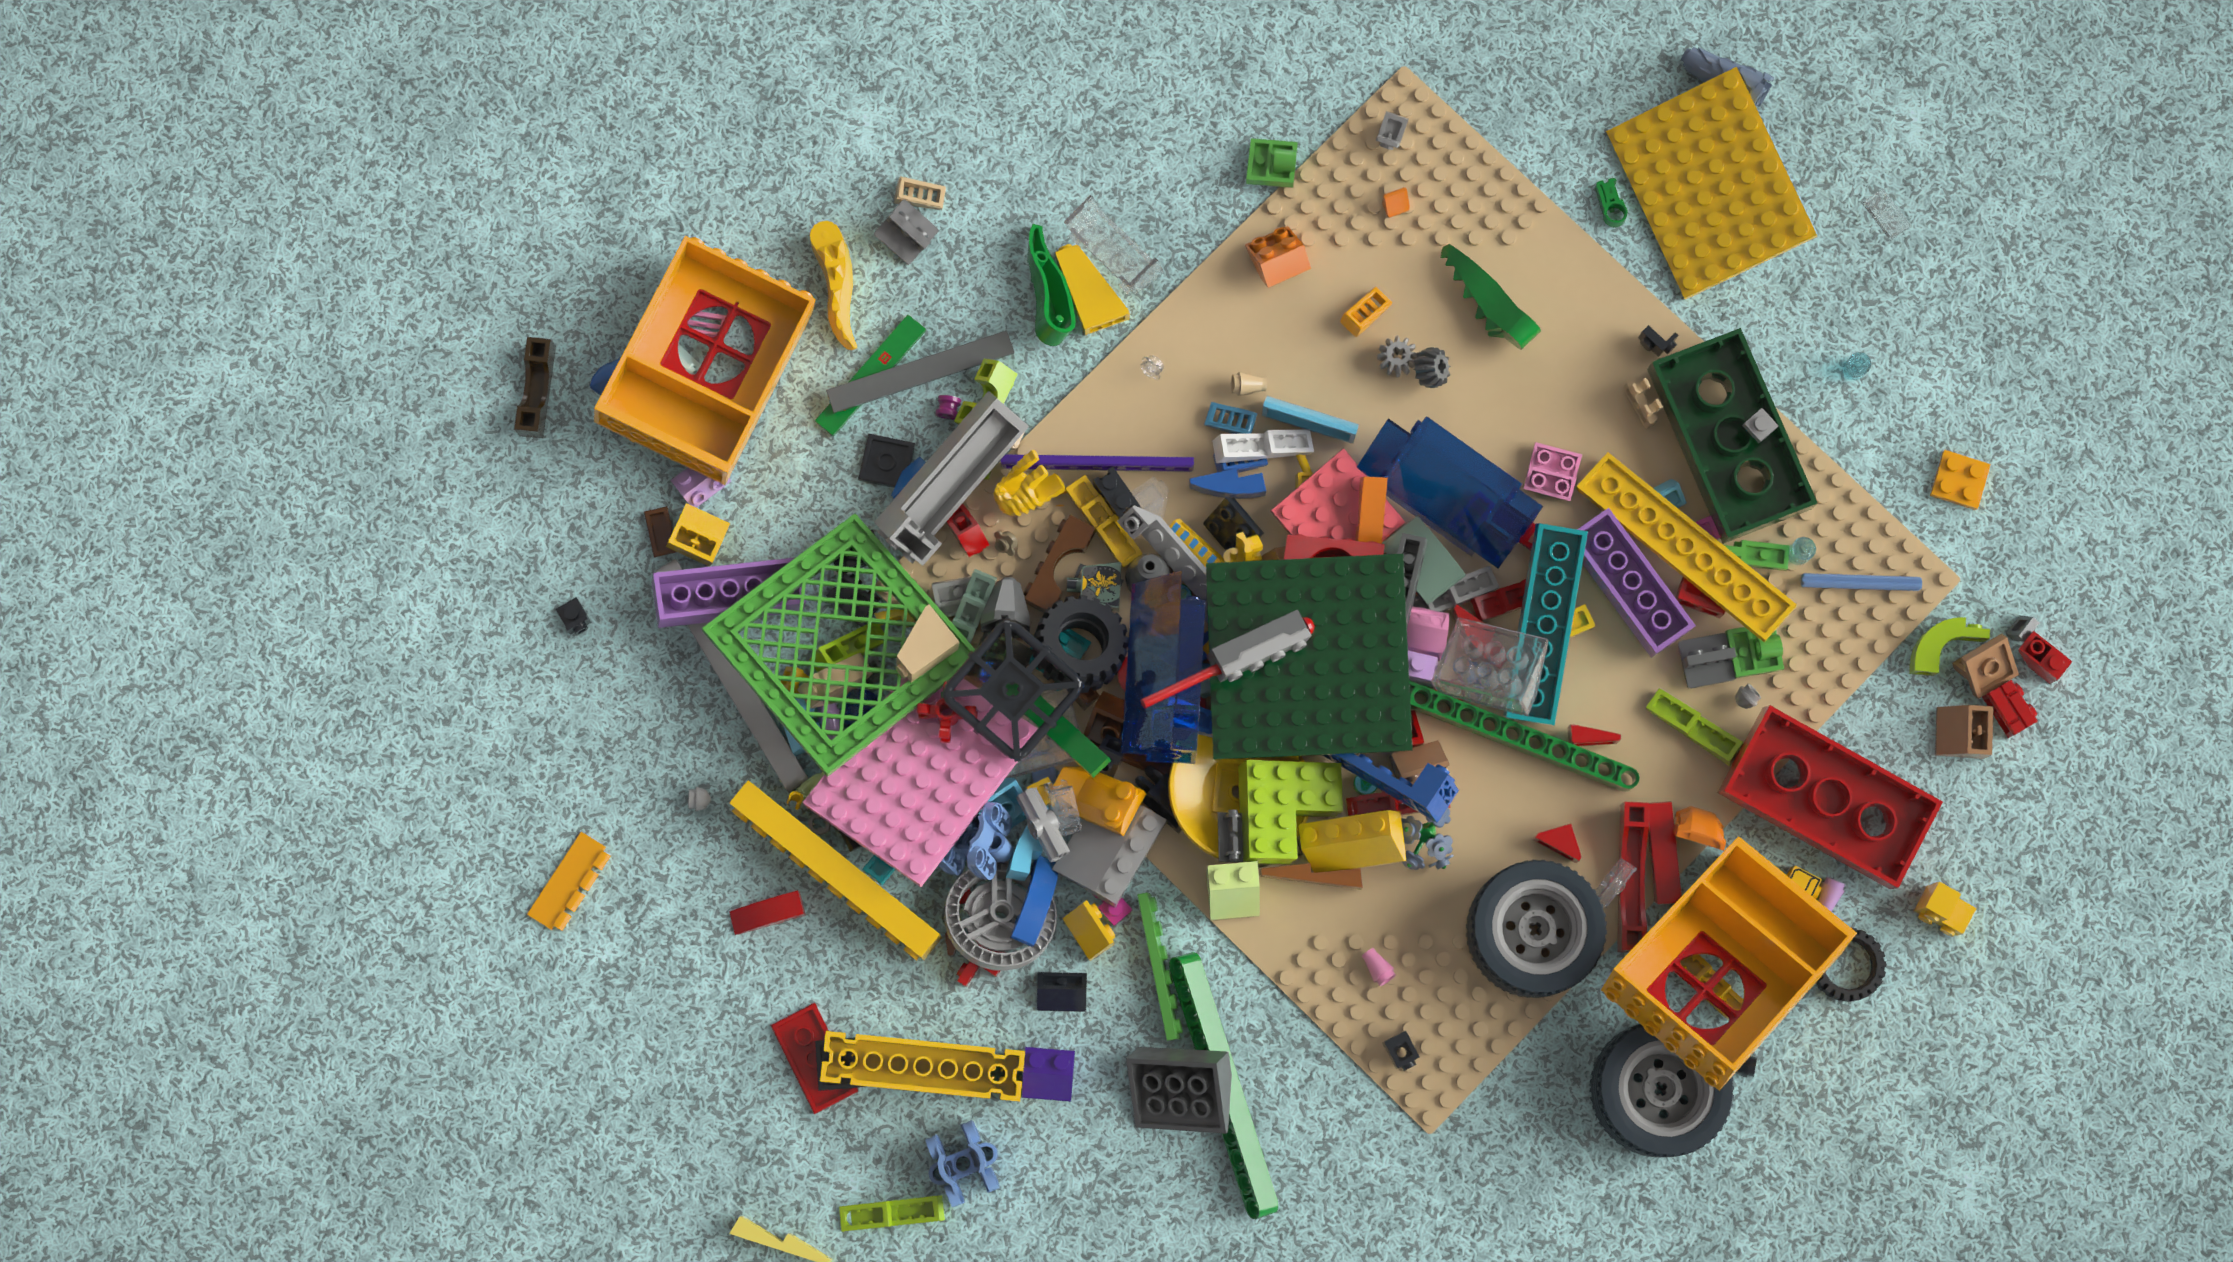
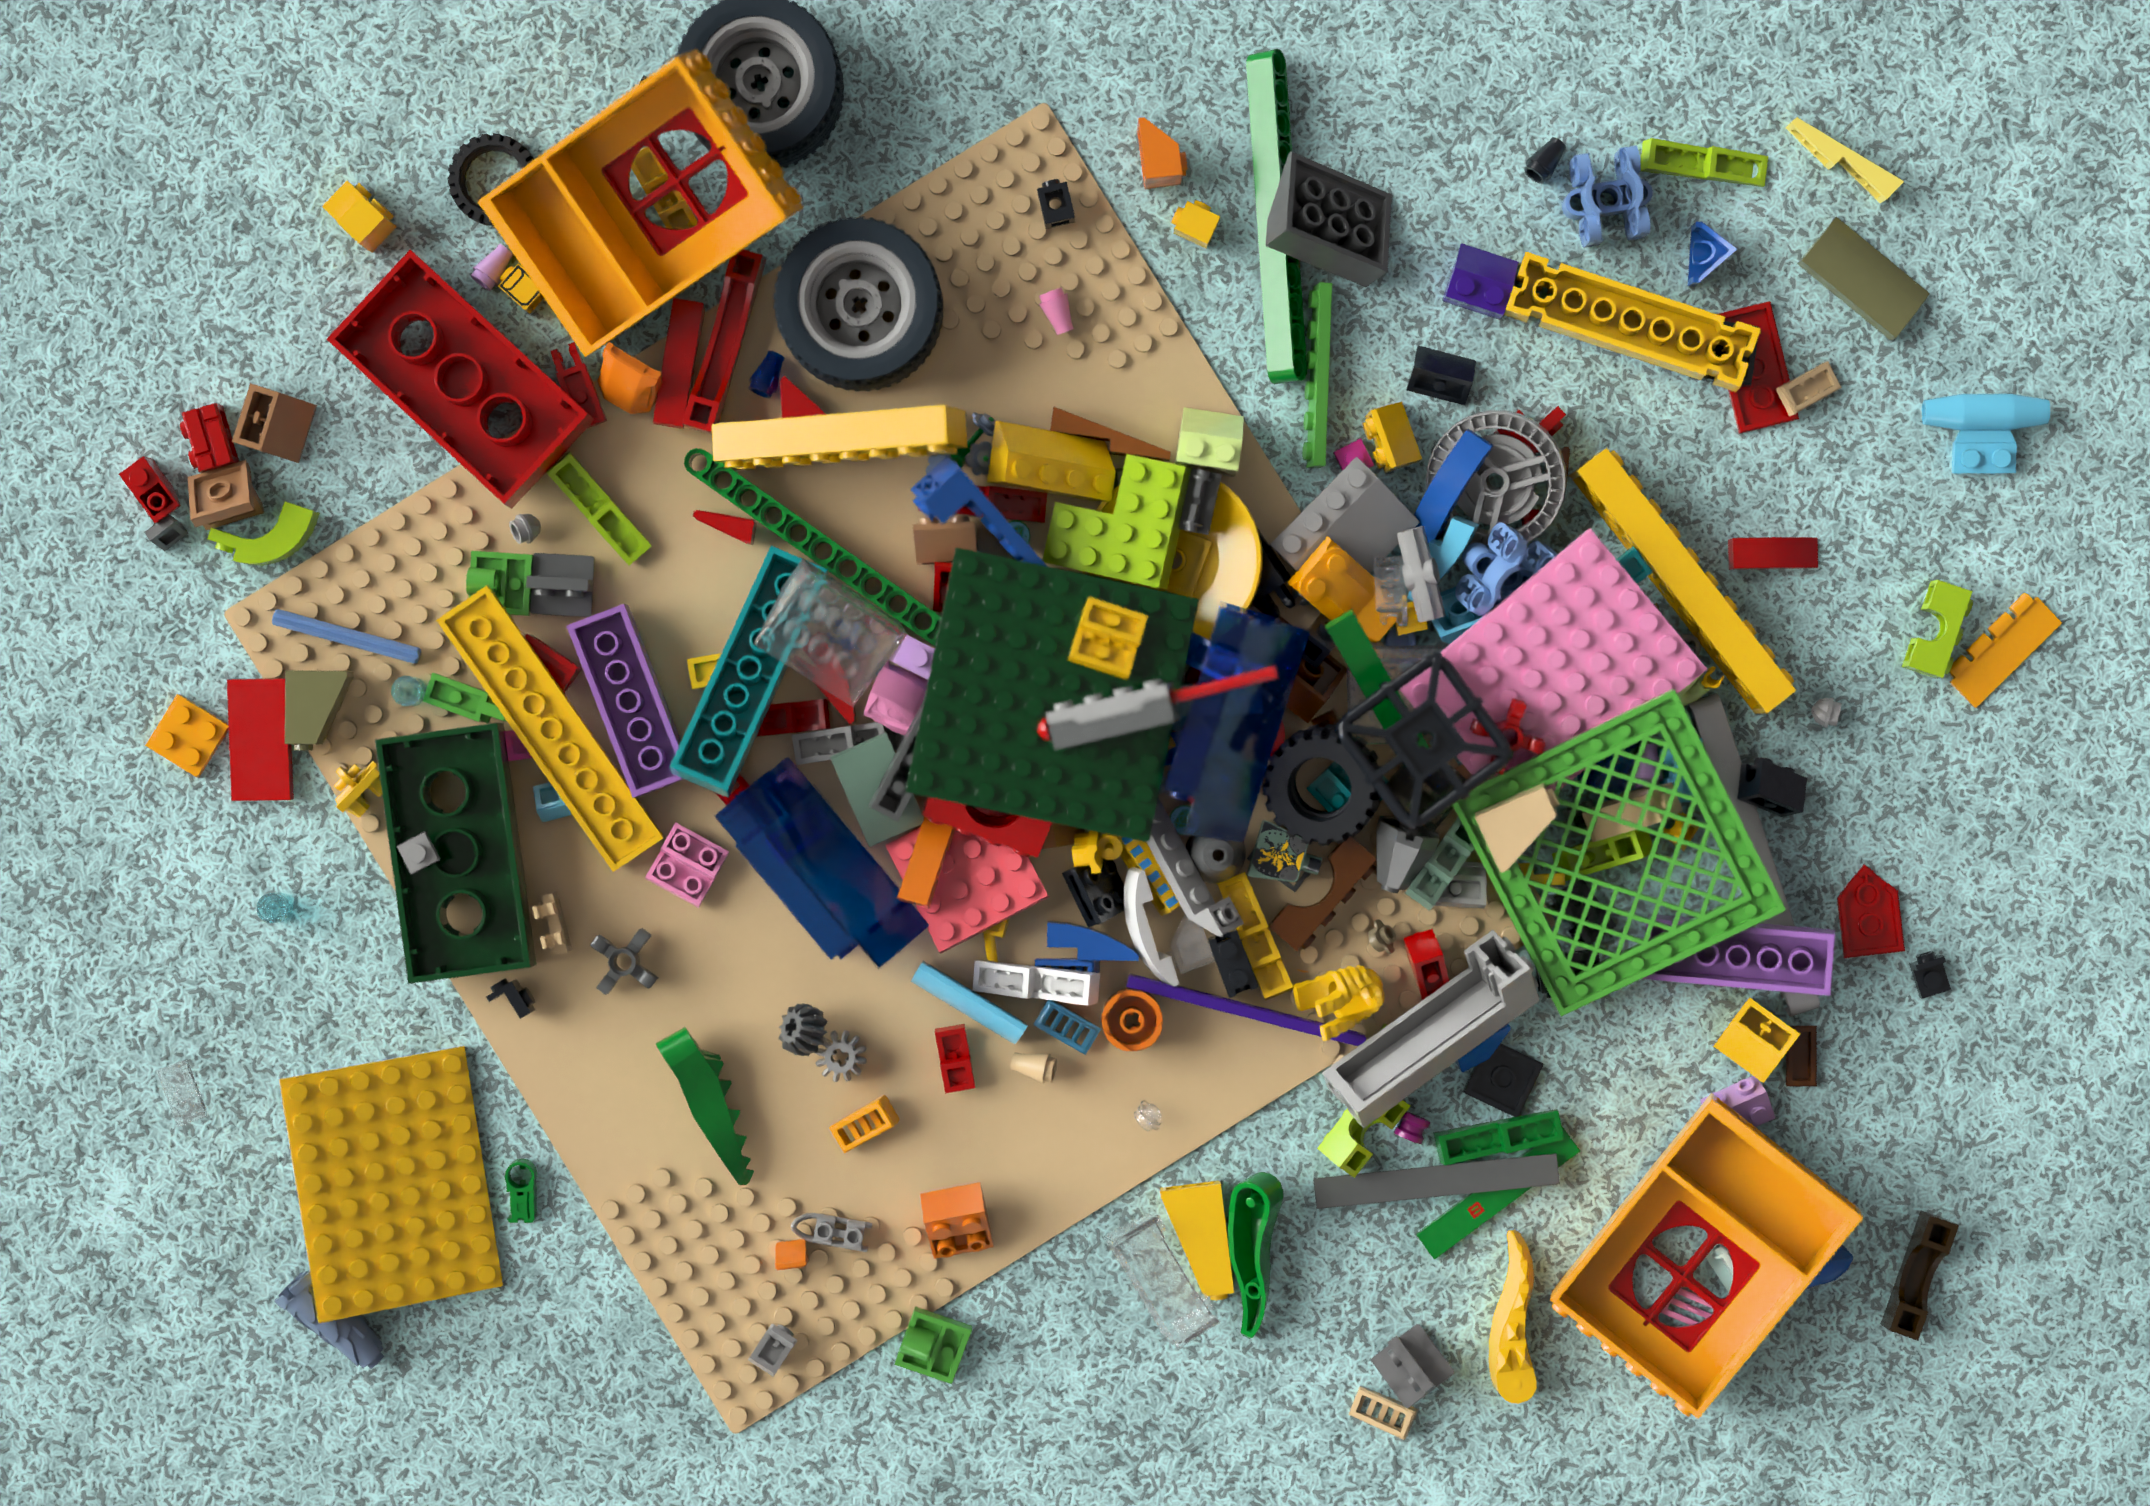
camera: 170 degrees left, 10 degrees up
(621, 1053) = (1985, 427): none -> medium azure plate
(623, 862) = (1949, 606): none -> lime arch
(630, 650) = (1869, 916): none -> red tile
(729, 727) = (1772, 787): none -> black brick
(742, 1151) = (1863, 279): none -> olive slope
(768, 1050) = (1808, 388): none -> tan plate
(874, 1137) = (1706, 252): none -> blue slope
(880, 416) = (1498, 1136): none -> green slope
(1019, 1183) = (1544, 161): none -> black cone
(1174, 424) = (1133, 1036): none -> orange brick
(1203, 526) = (1135, 894): none -> white slope
(1277, 708) = (1107, 638): none -> yellow slope
(1286, 1064) = (1195, 223): none -> yellow brick
(1310, 375) = (955, 1058): none -> red slope
(1329, 1108) = (1160, 157): none -> orange slope
(1375, 227) = (825, 1231): none -> light grey piece
(1523, 817) = (840, 437): none -> yellow brick
(1592, 860) = (766, 377): none -> clear blue cone
(1598, 394) = (606, 948): none -> dark grey pin
(1614, 881) = (749, 339): clear plate -> none
(1736, 817) = (579, 384): none -> red hinge
(1821, 470) = (350, 797): none -> yellow hips
(1872, 523) = (312, 704): none -> olive slope
(1904, 489) = (258, 753): none -> red tile

